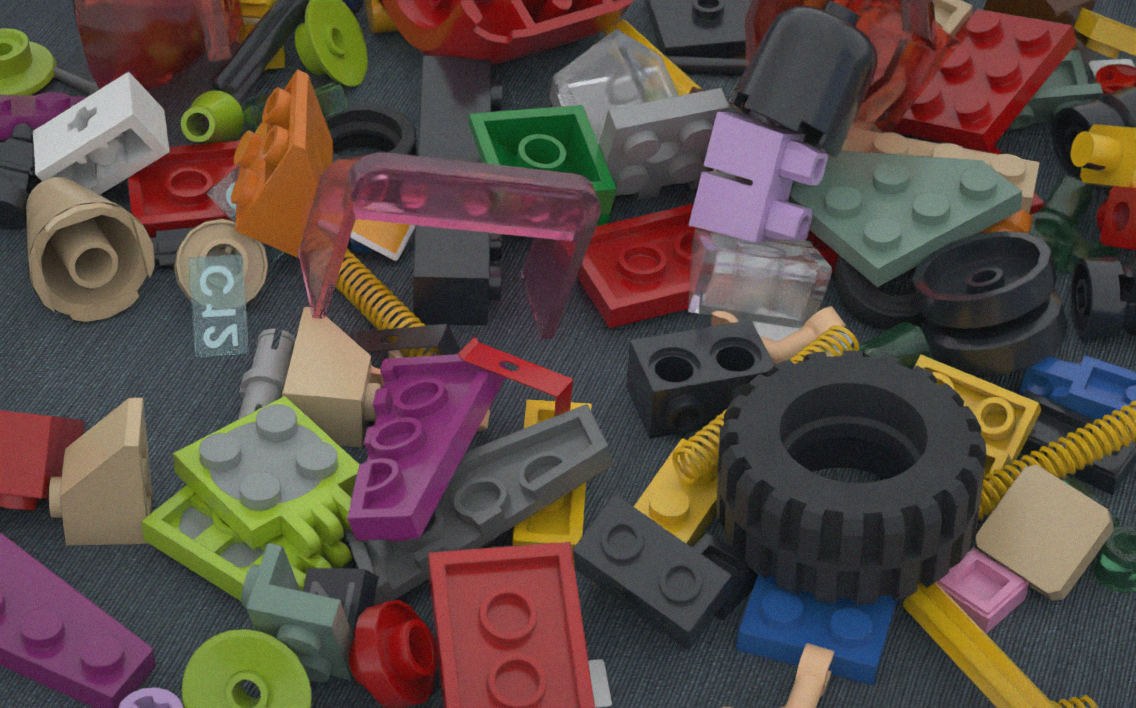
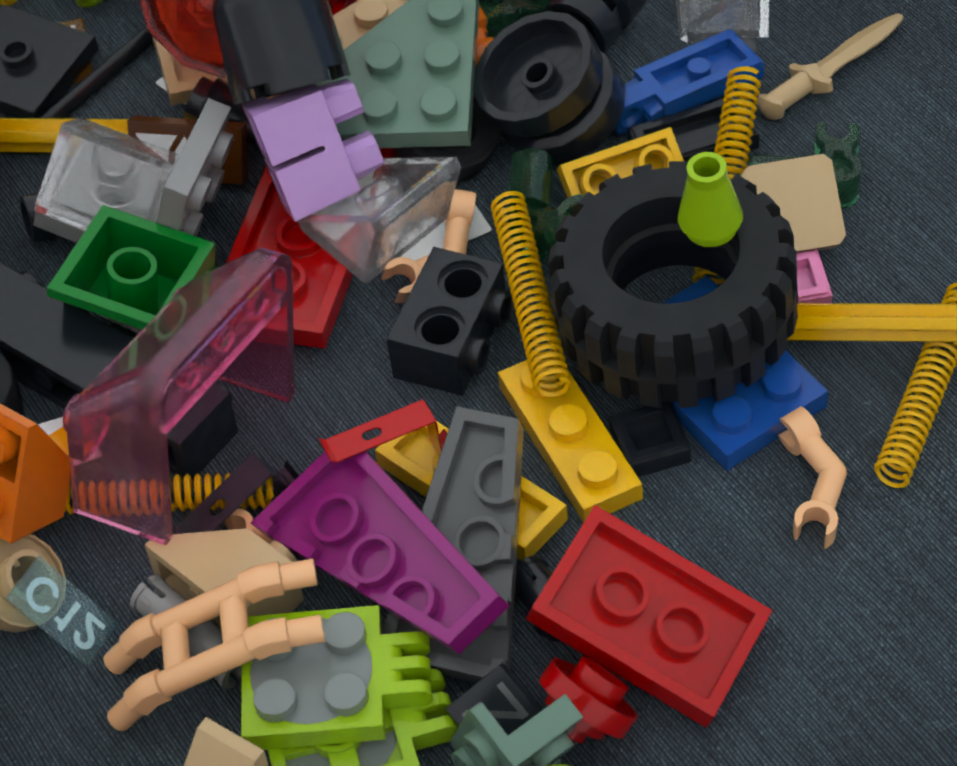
camera: 45 degrees left, 10 degrees up
(255, 399) = (239, 640): none -> light nougat piece
(652, 571) = (651, 470): black brick -> none
(906, 415) = (709, 203): none -> lime cone

